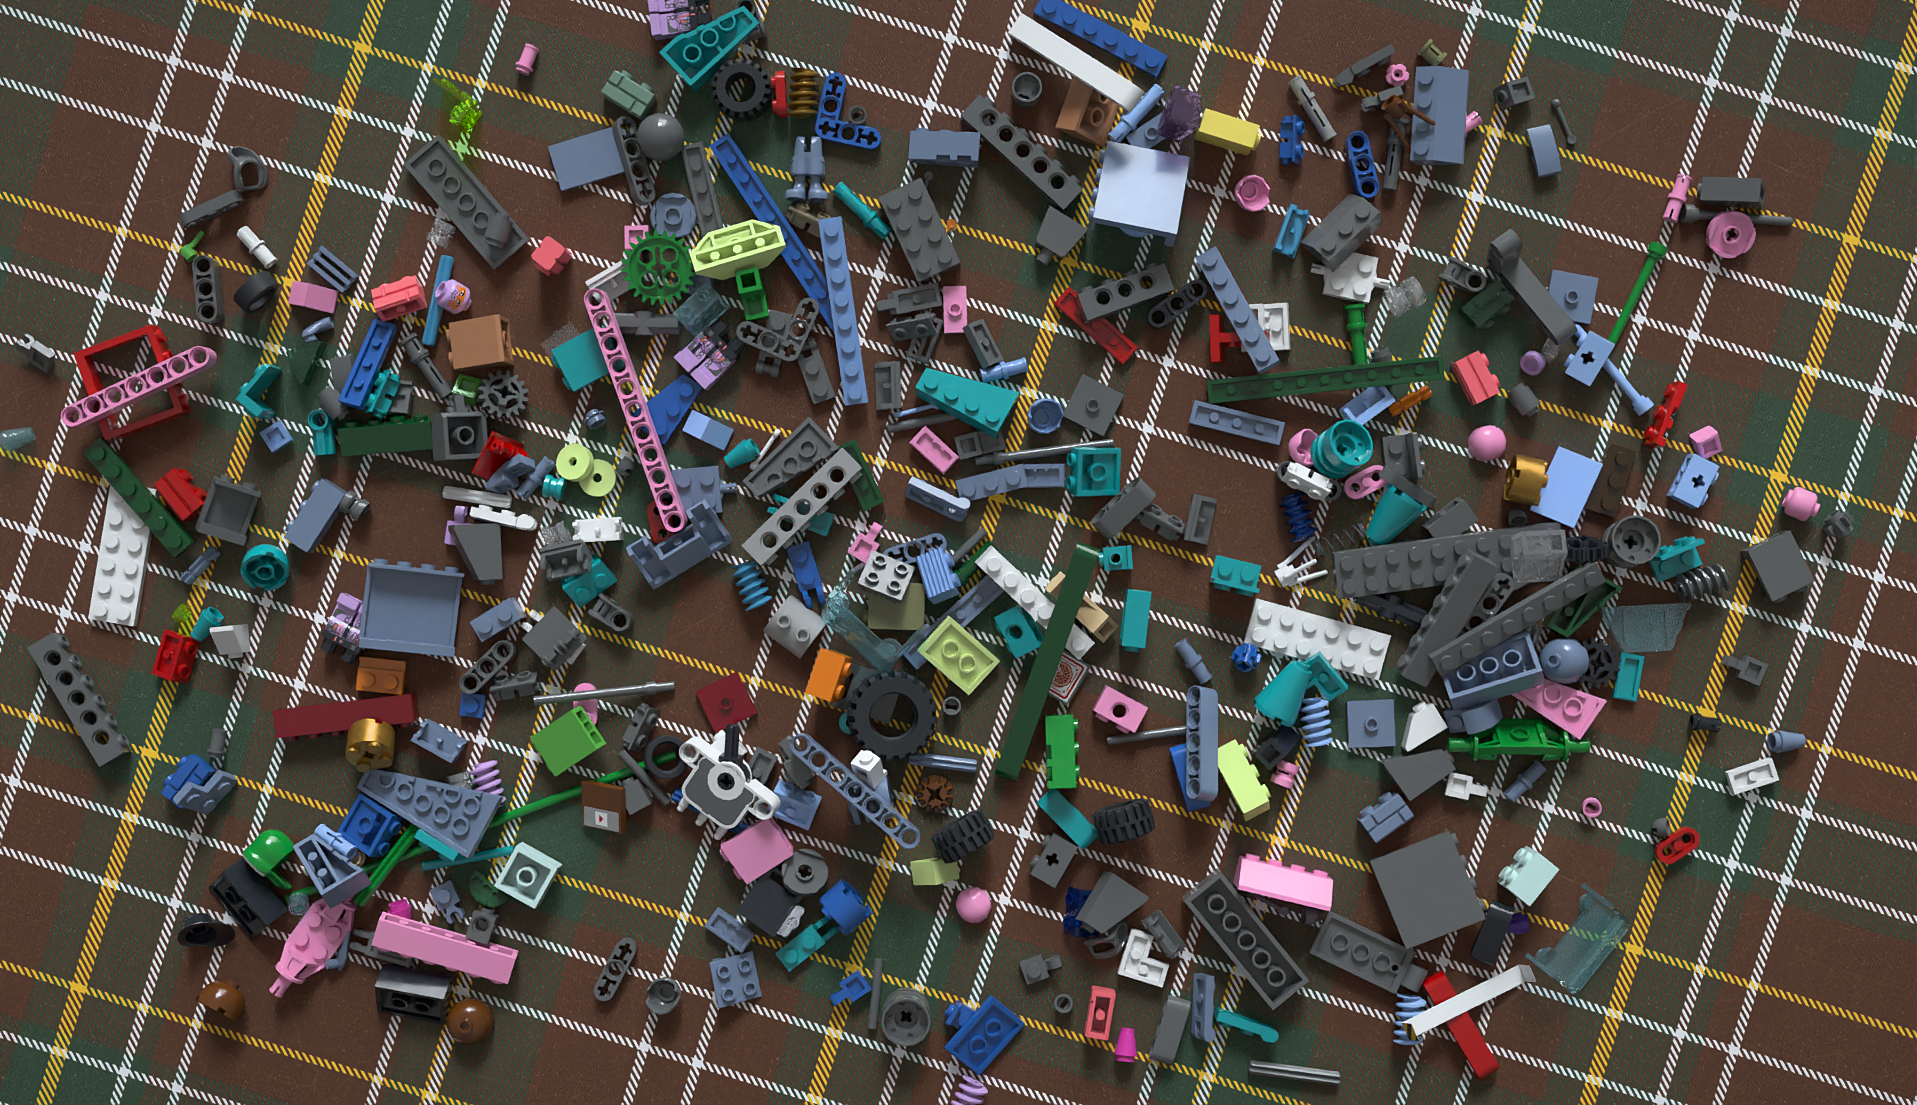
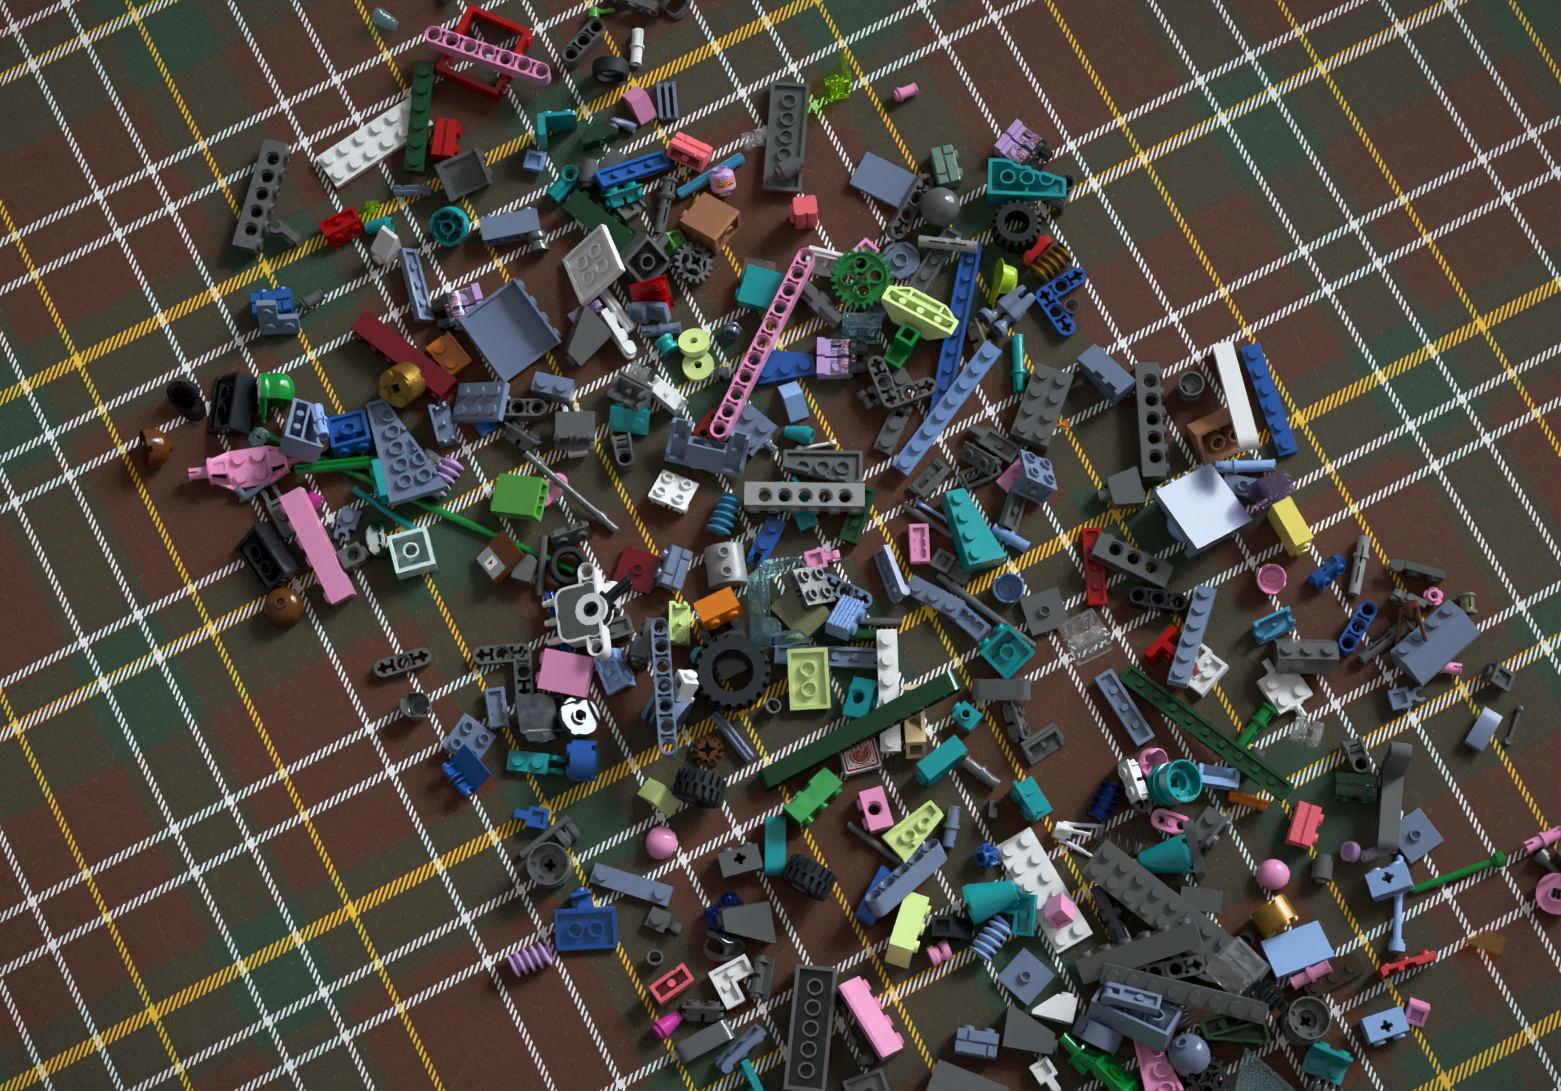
camera: 50 degrees right, 15 degrees down
(142, 709) = (290, 237): none -> dark grey plate
(291, 645) = (416, 285): none -> sand blue plate
(422, 482) = (593, 264): none -> white plate
(451, 693) = (481, 402): none -> sand blue plate
(687, 606) = (673, 491): none -> white hinge
(707, 875) = (518, 662): none -> dark grey beam
(722, 146) = (948, 244): none -> light grey pin
(754, 673) = (673, 568): none -> sand blue brick
(759, 1007) = (465, 771): none -> blue hinge
(778, 148) = (1004, 280): none -> lime piece
(806, 713) = (679, 623): none -> yellowish green hinge
(893, 975) = (568, 834): none -> dark grey wheel
(978, 296) = (1037, 478): none -> sand blue bracket
(984, 962) = (631, 885): none -> sand blue plate
(1147, 395) = (1085, 637): none -> clear slope
(1149, 997) = (695, 1009): none -> dark grey hinge
(1166, 696) = (913, 830): none -> yellowish green wing
(1174, 592) = (981, 773): none -> dark grey pin
(1212, 613) = (992, 813): none -> dark grey tile
(1350, 647) = (1059, 911): none -> bright pink panel
(1454, 189) = (1402, 698): none -> sand blue plate
(1481, 665) = (1131, 998): none -> sand blue plate
(1598, 498) = (1311, 974): none -> bright pink pin
(1709, 327) = (1488, 941): none -> clear orange tile

